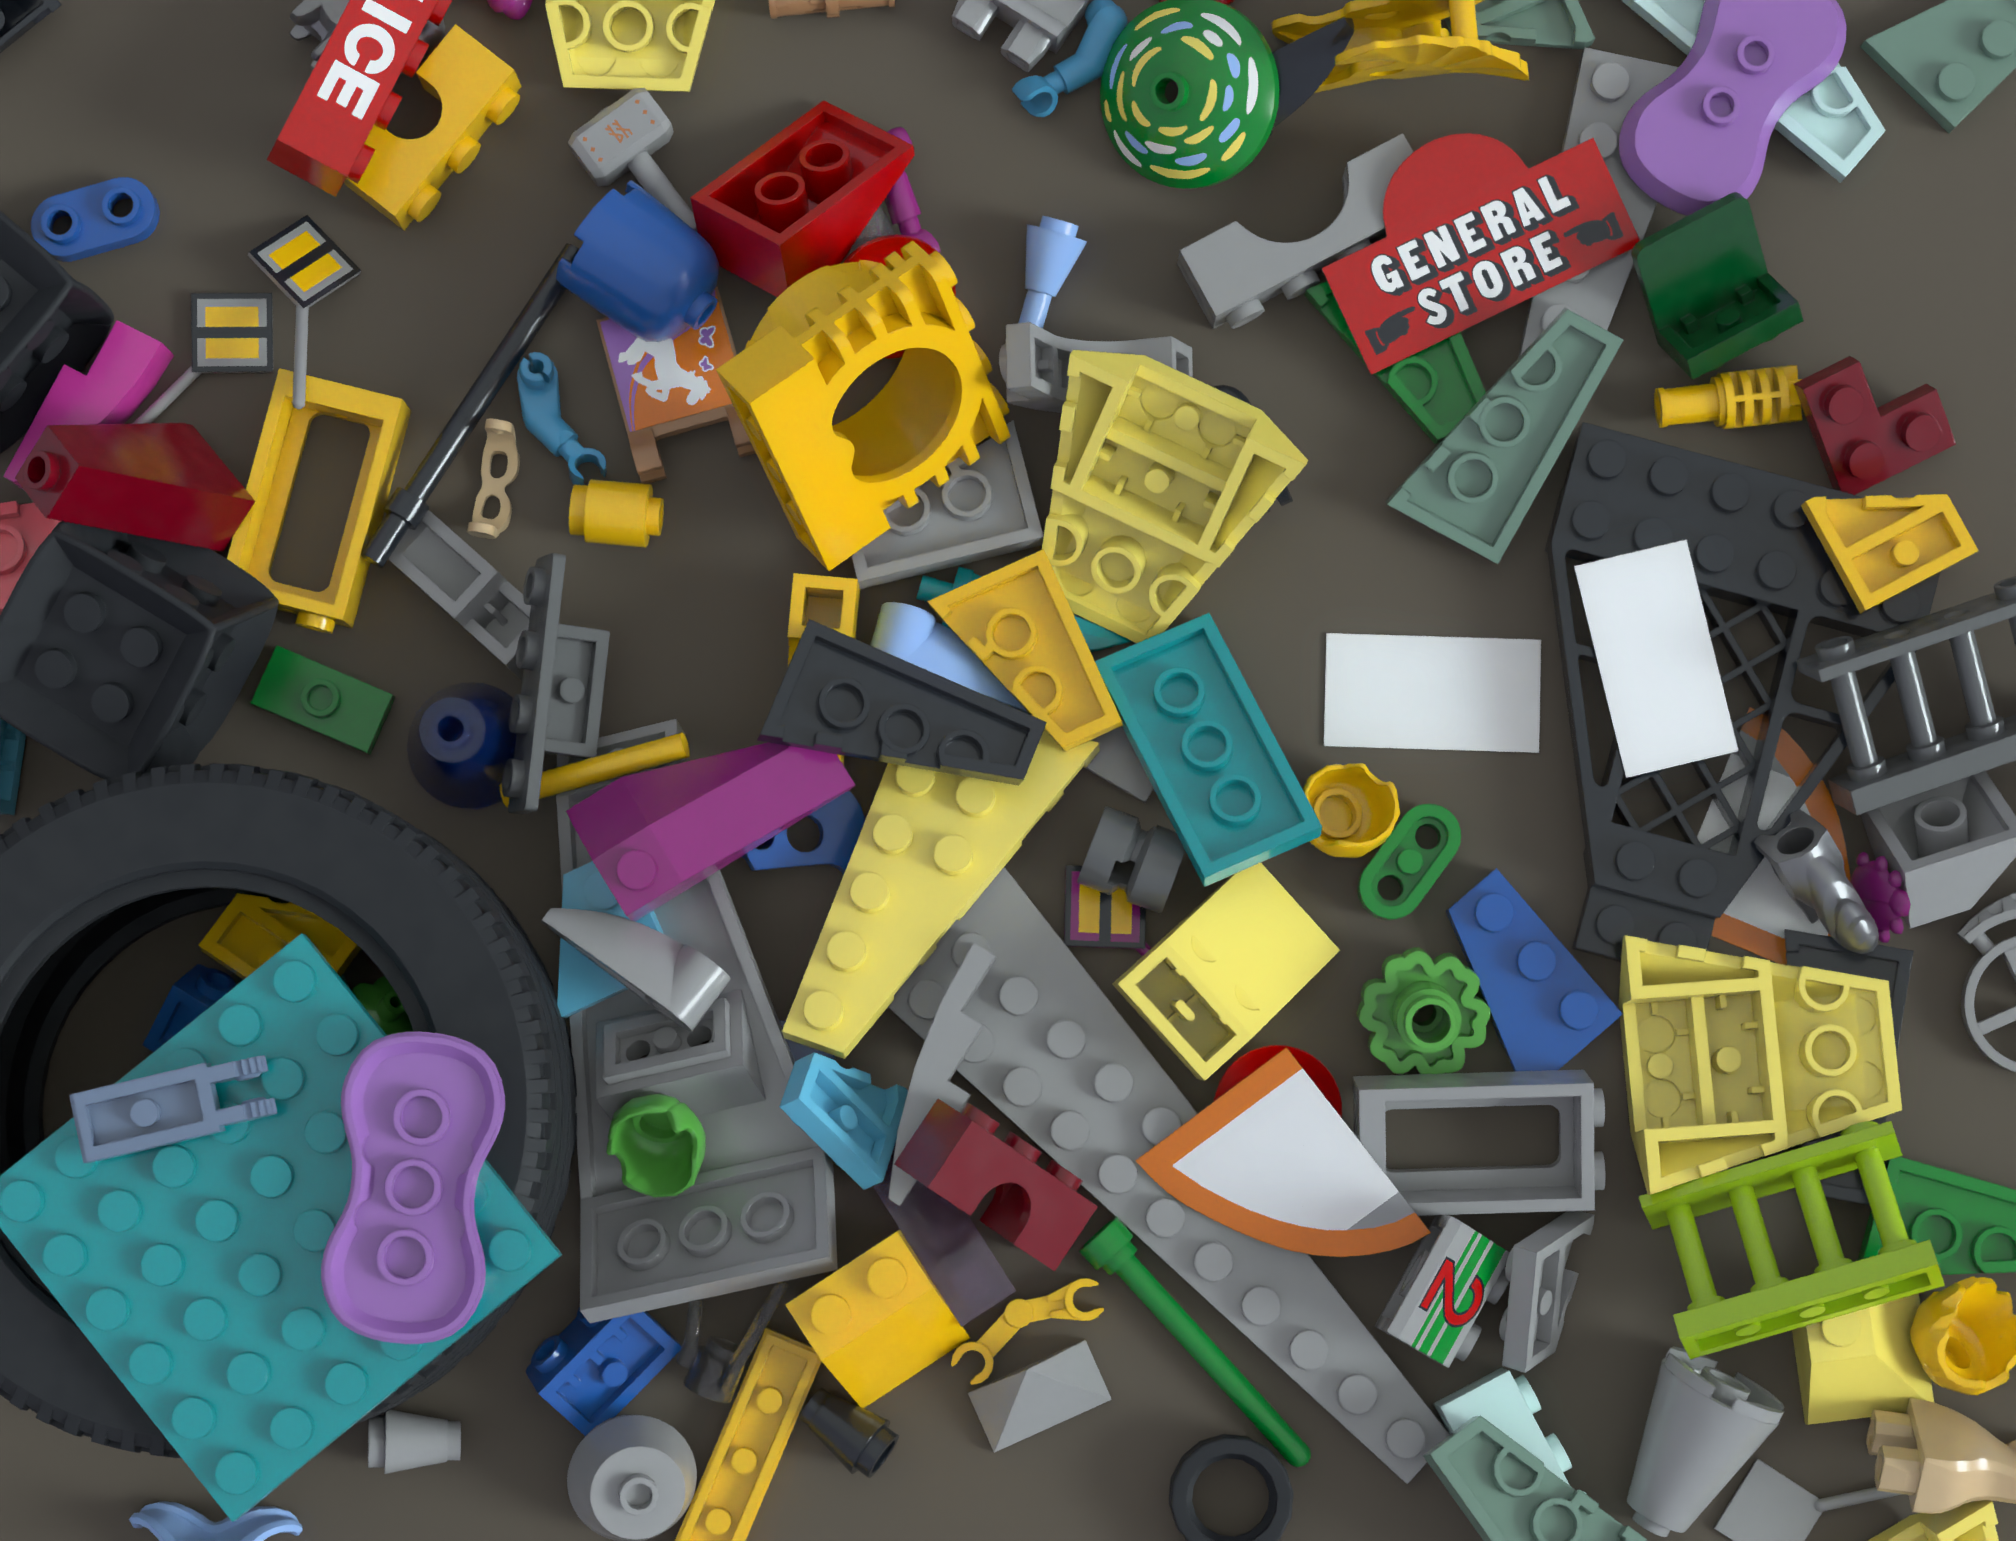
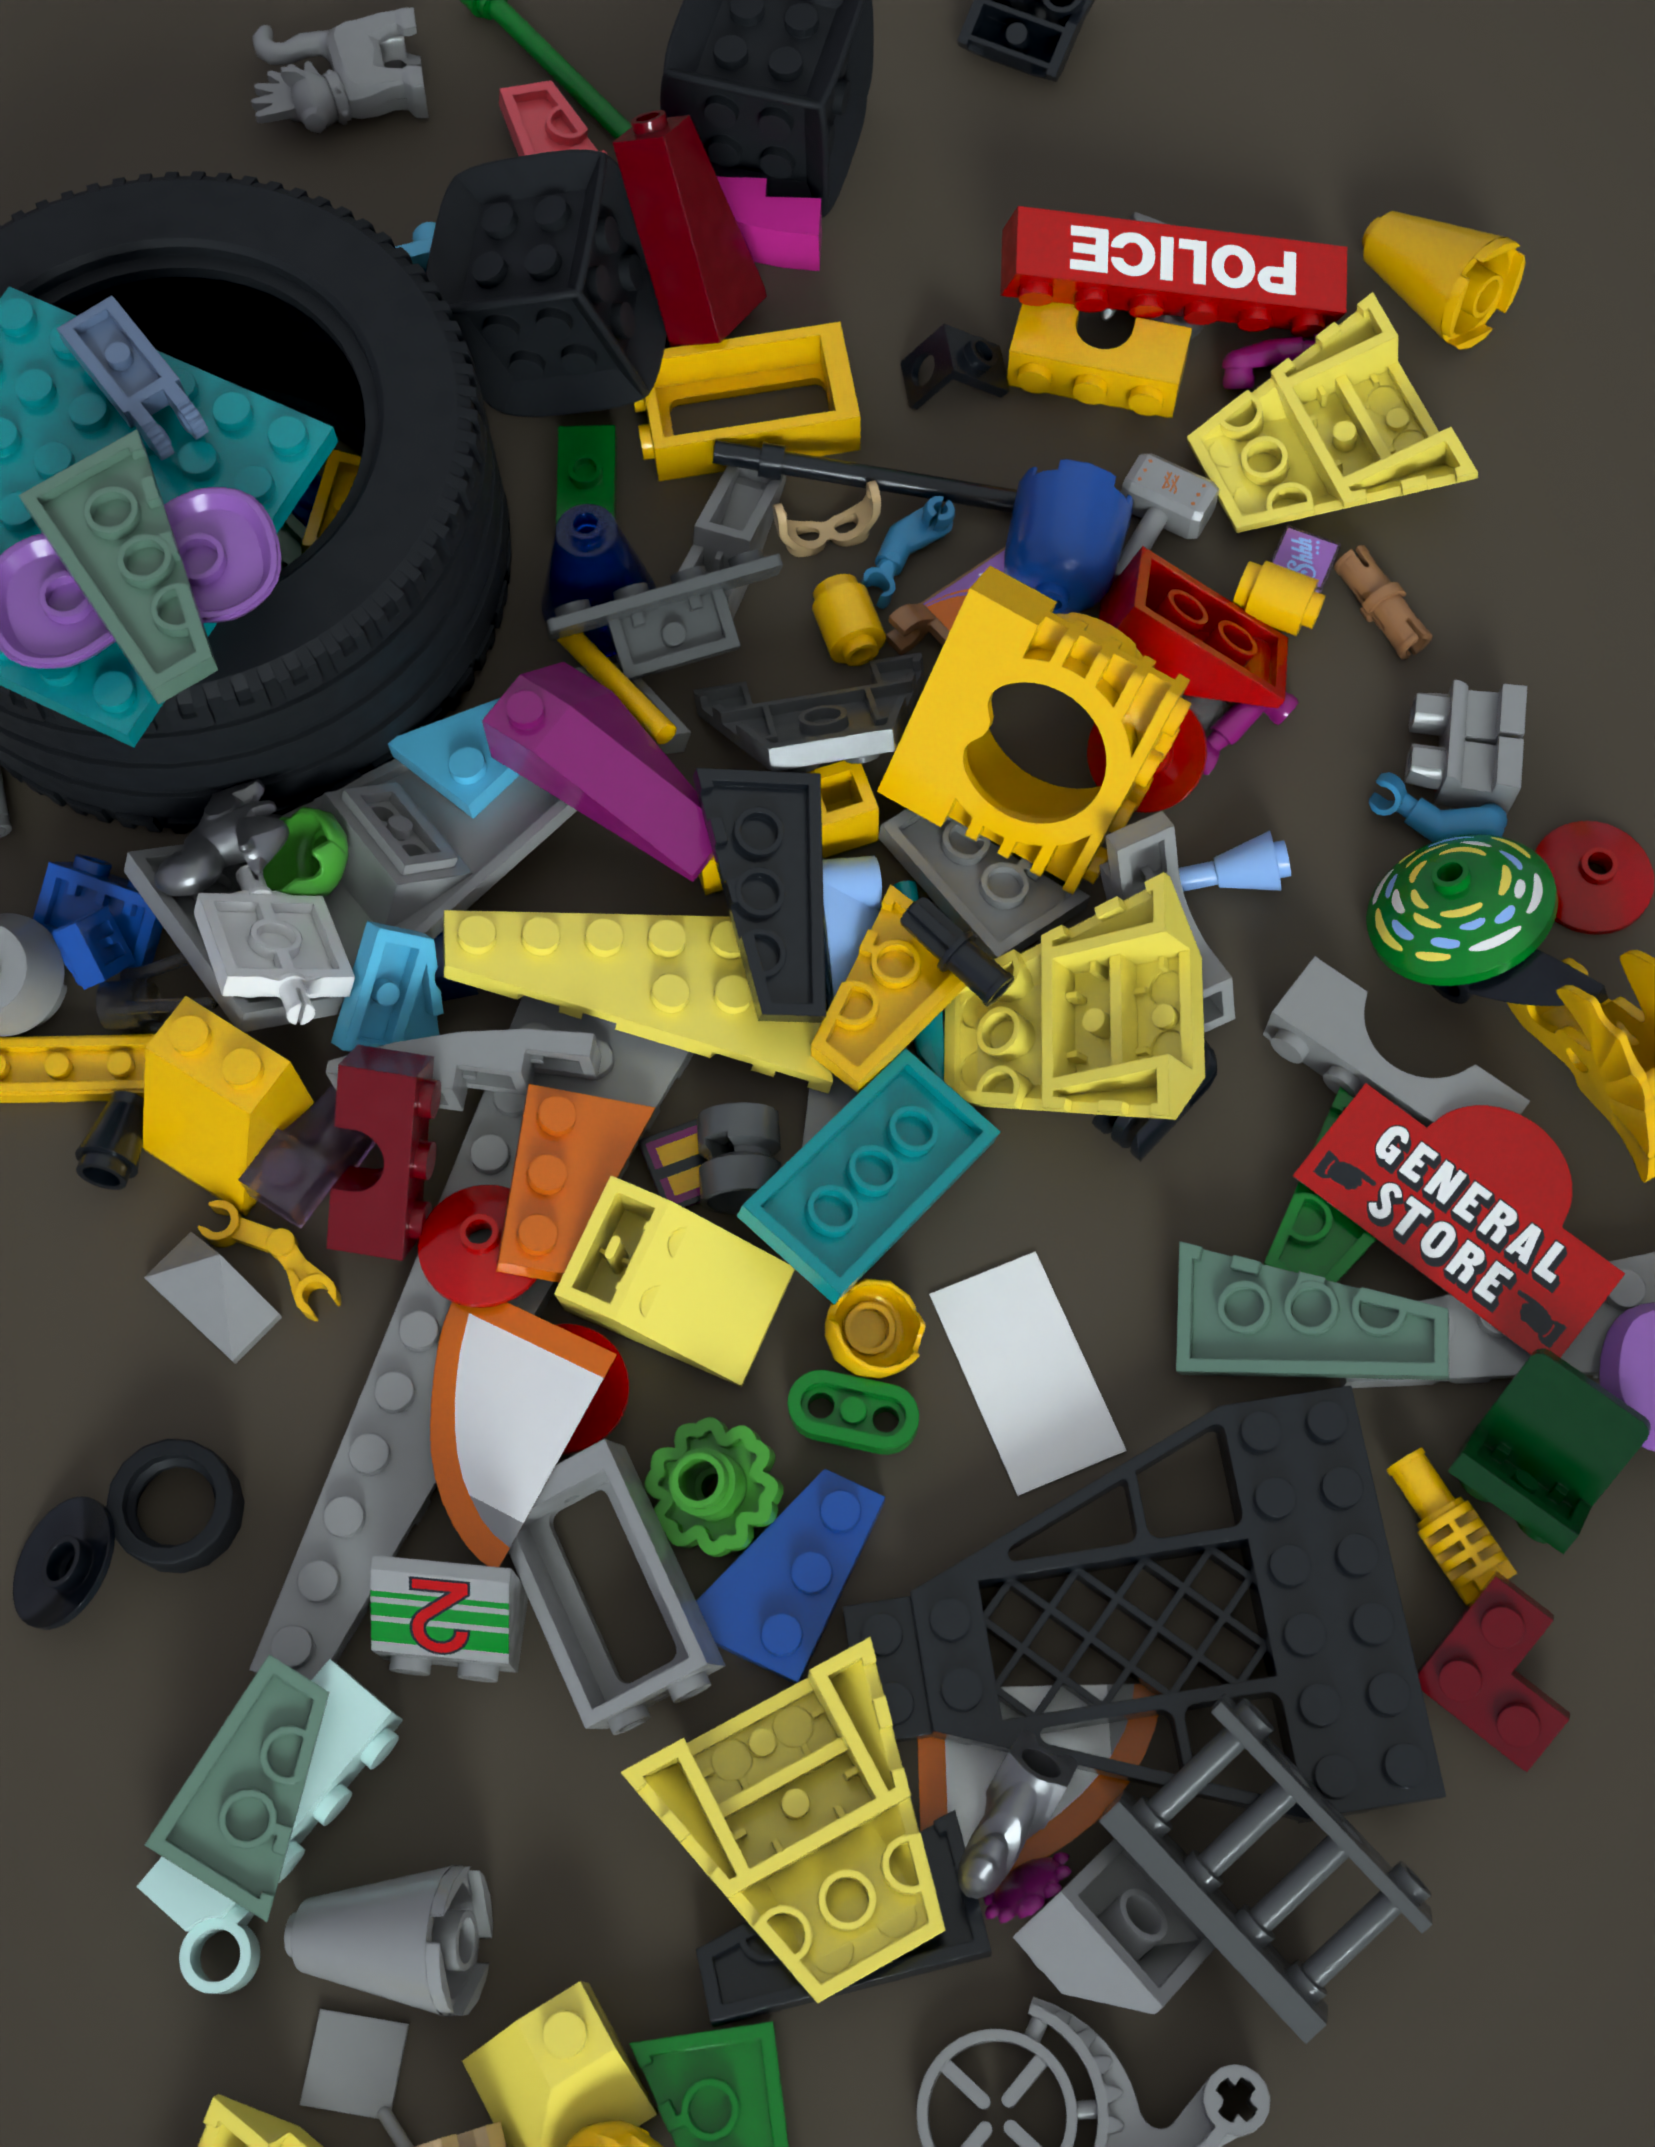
camera: 70 degrees right, 15 degrees down
(93, 220) = (889, 165): blue plate -> none
(227, 337) = (853, 296): piece -> none
(306, 269) = (927, 310): piece -> none
(369, 266) = (956, 357): none -> black bracket
(398, 1187) = (124, 557): none -> sand green wing
(609, 1207) = (231, 832): none -> flat silver animal
(647, 962) = (456, 776): light grey piece -> none
(658, 1382) = (93, 948): none -> blue bracket
(742, 596) = (822, 726): none -> dark grey wing
(750, 45) = (1306, 554): none -> medium lavender tile
(758, 1204) = (273, 945): none -> white plate
(785, 89) = (1279, 597): none -> yellow brick
(839, 831) = (667, 897): blue piece -> none
(1034, 573) = (956, 951): none -> black axle
(1087, 1027) = (559, 1171): none -> orange wing
(1115, 1253) = (369, 1302): green piece -> none
(1150, 1131) = (465, 1269): none -> red dish
(1540, 1290) = (488, 1714): light grey wing -> none
(1656, 658) = (1157, 1553): white sticker -> none
(1837, 1283) = (602, 2003): lime fence -> none
(1888, 541) = (1388, 1729): yellow wing -> none

